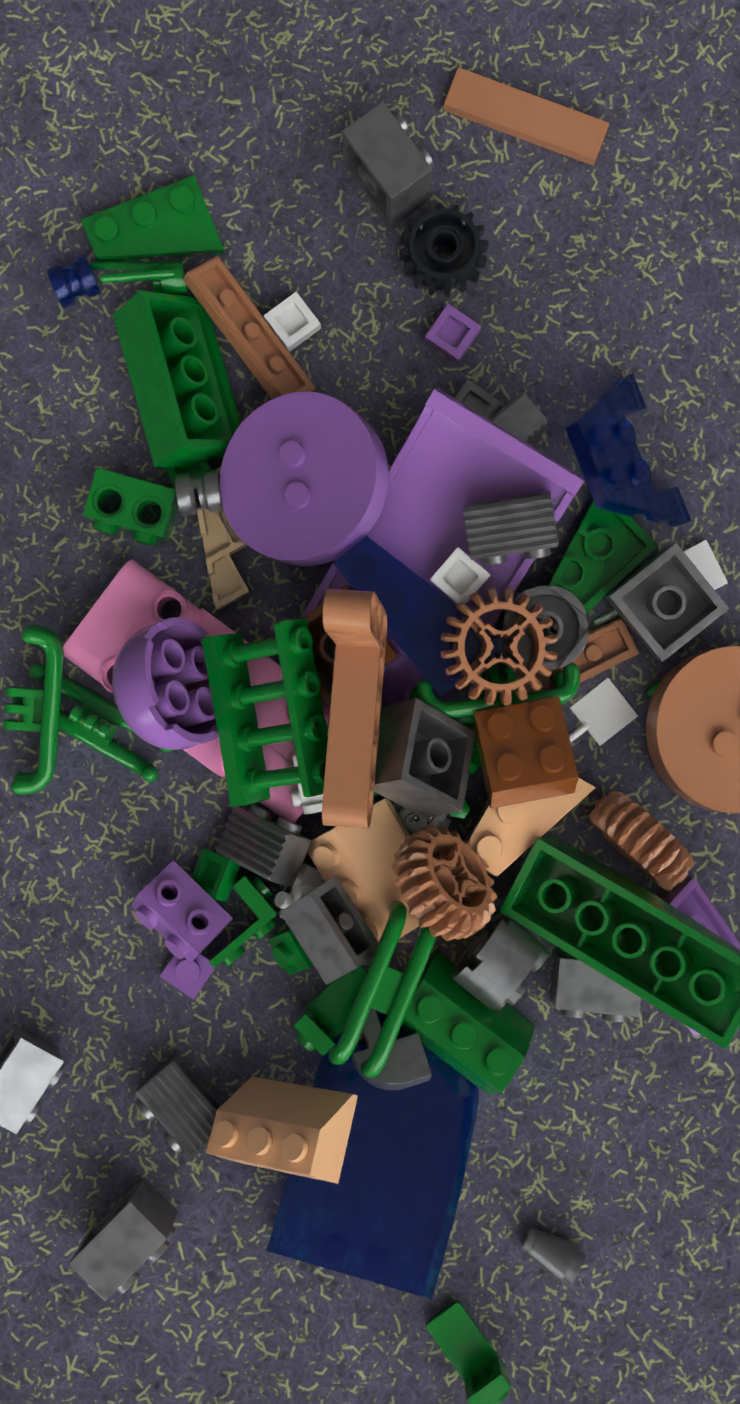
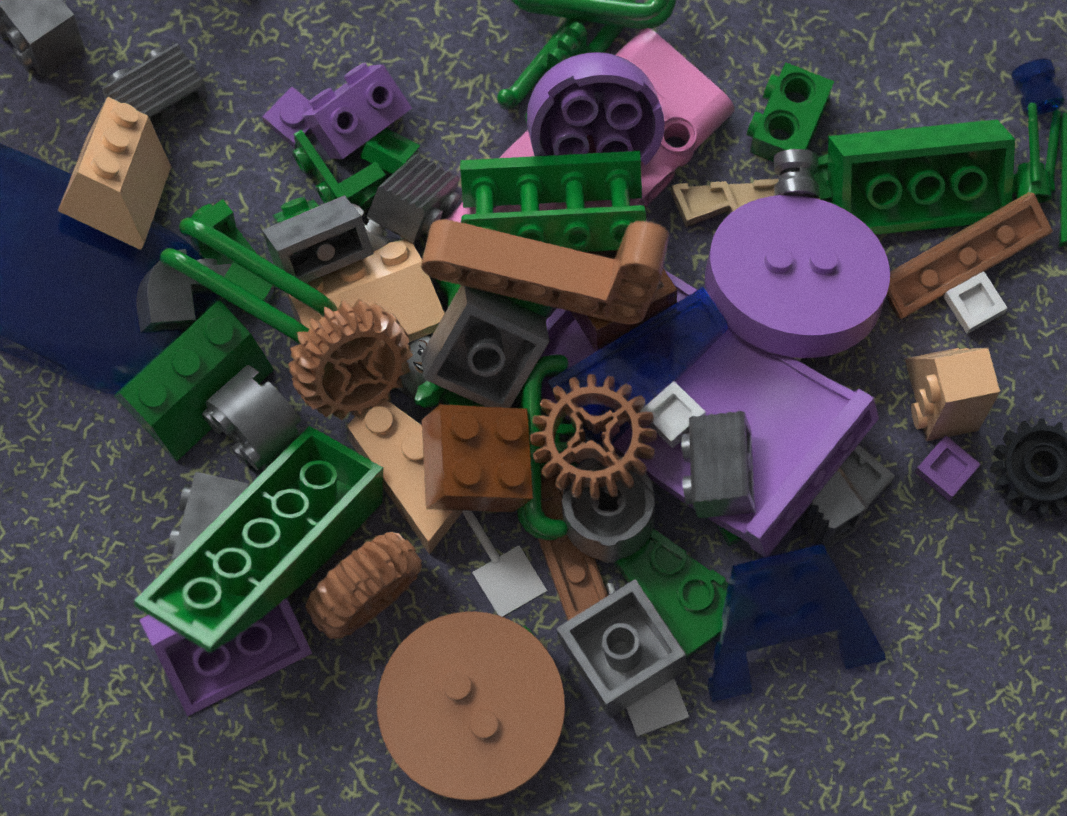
camera: 90 degrees right, 15 degrees down
(387, 332) = (952, 391): none -> light nougat wedge

